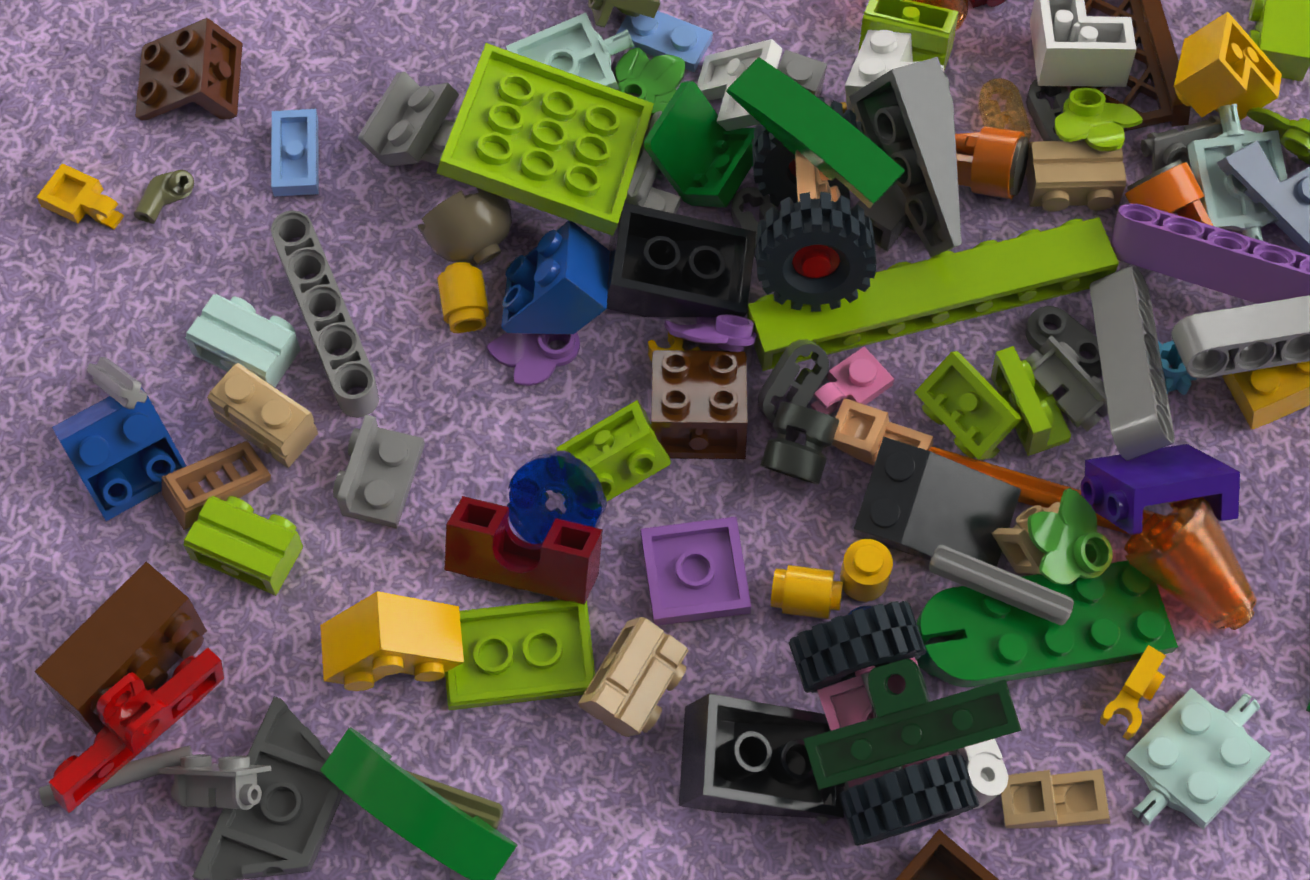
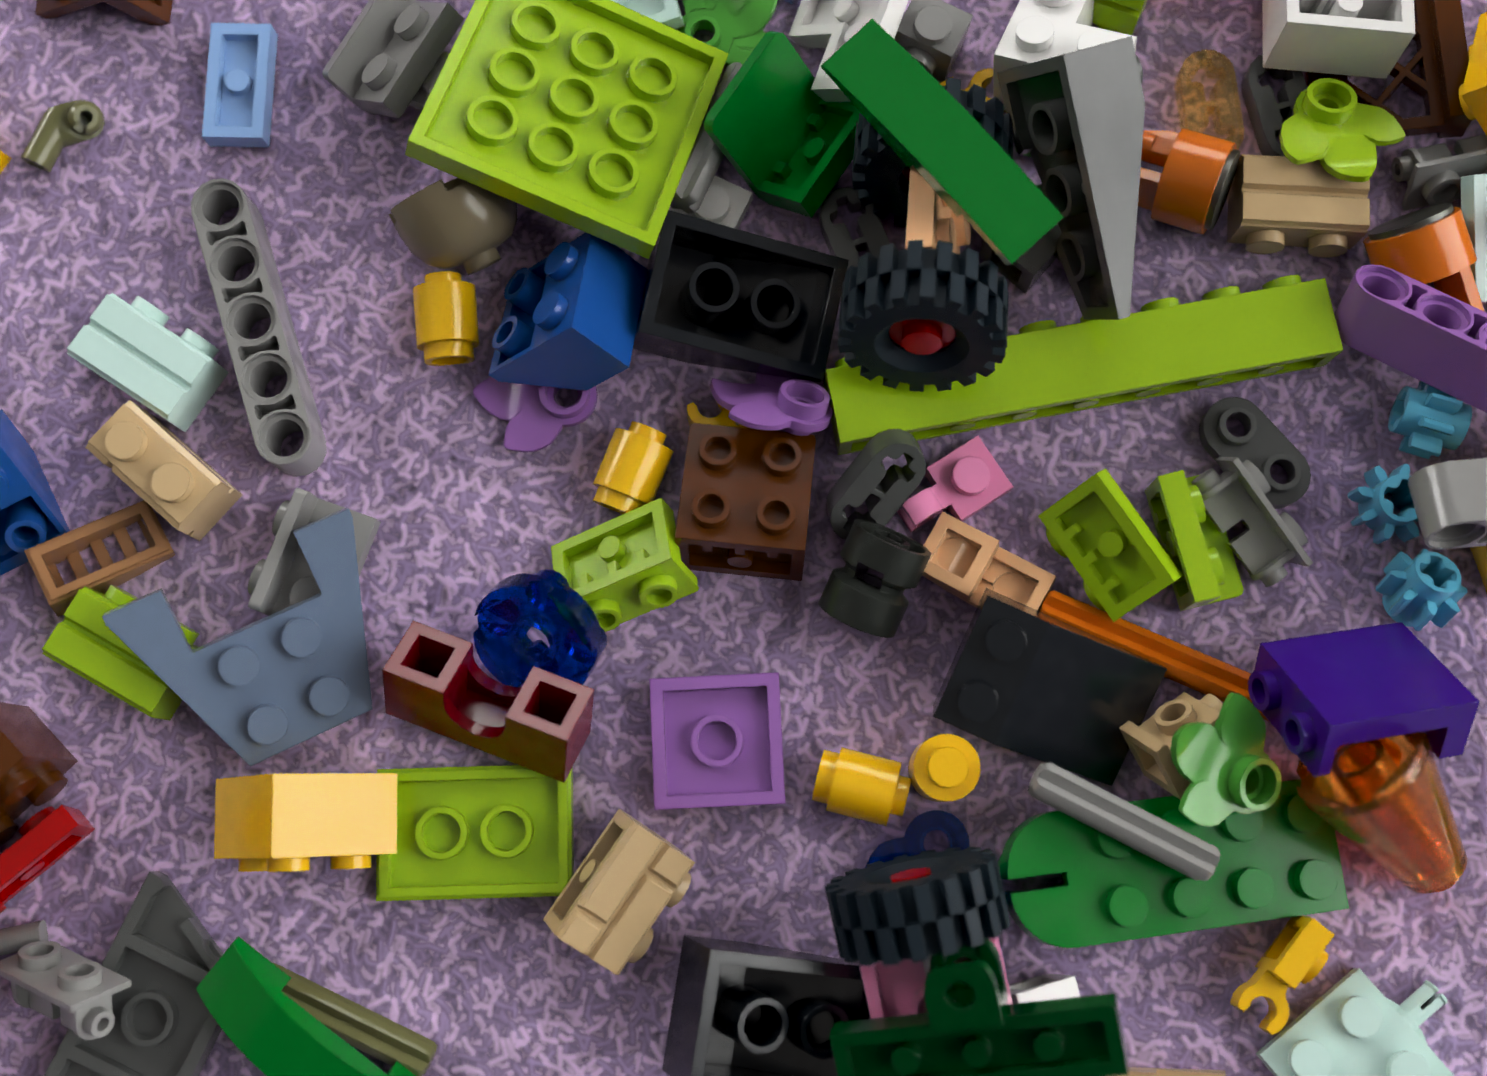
camera: 10 degrees right, 15 degrees up
(360, 547) = (279, 674): none -> sand blue wing
(611, 386) = (632, 468): none -> yellow brick
(1131, 363) = (1343, 508): light grey beam -> none
(1186, 301) = (1428, 420): none -> medium azure gear
(1199, 420) = (1421, 589): none -> medium azure gear

